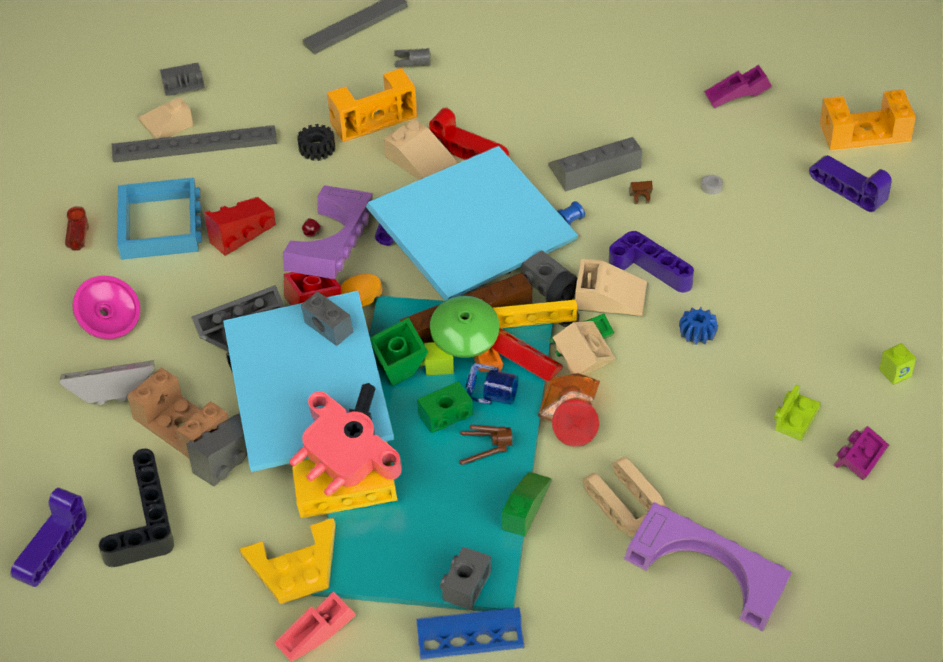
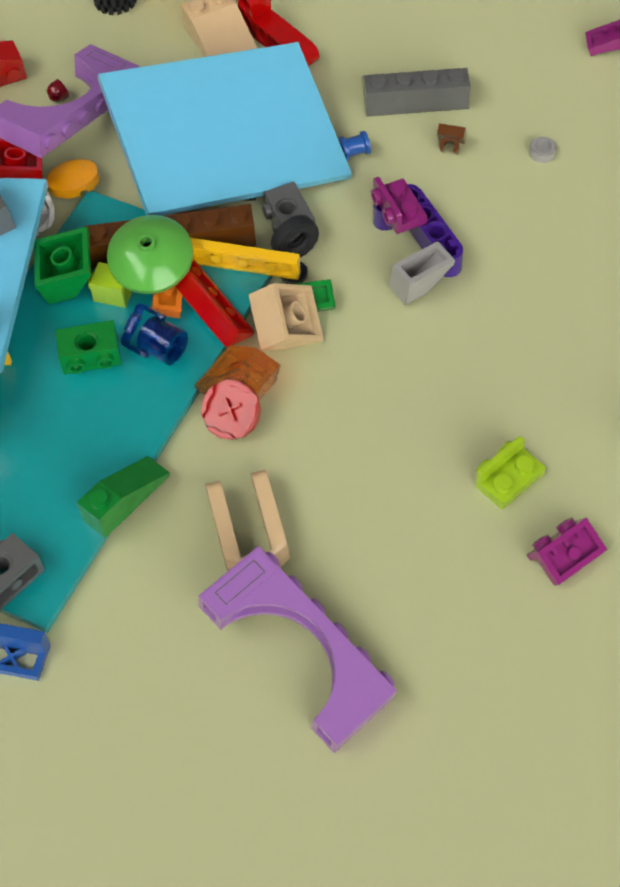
camera: 20 degrees right, 10 degrees up
(499, 436) = (132, 402): reddish brown plant -> none
(609, 289) = (351, 249): tan slope -> none
(631, 247) = (398, 205): none -> magenta bracket
(668, 292) = (419, 272): none -> light grey slope
(698, 325) = (439, 324): blue gear -> none

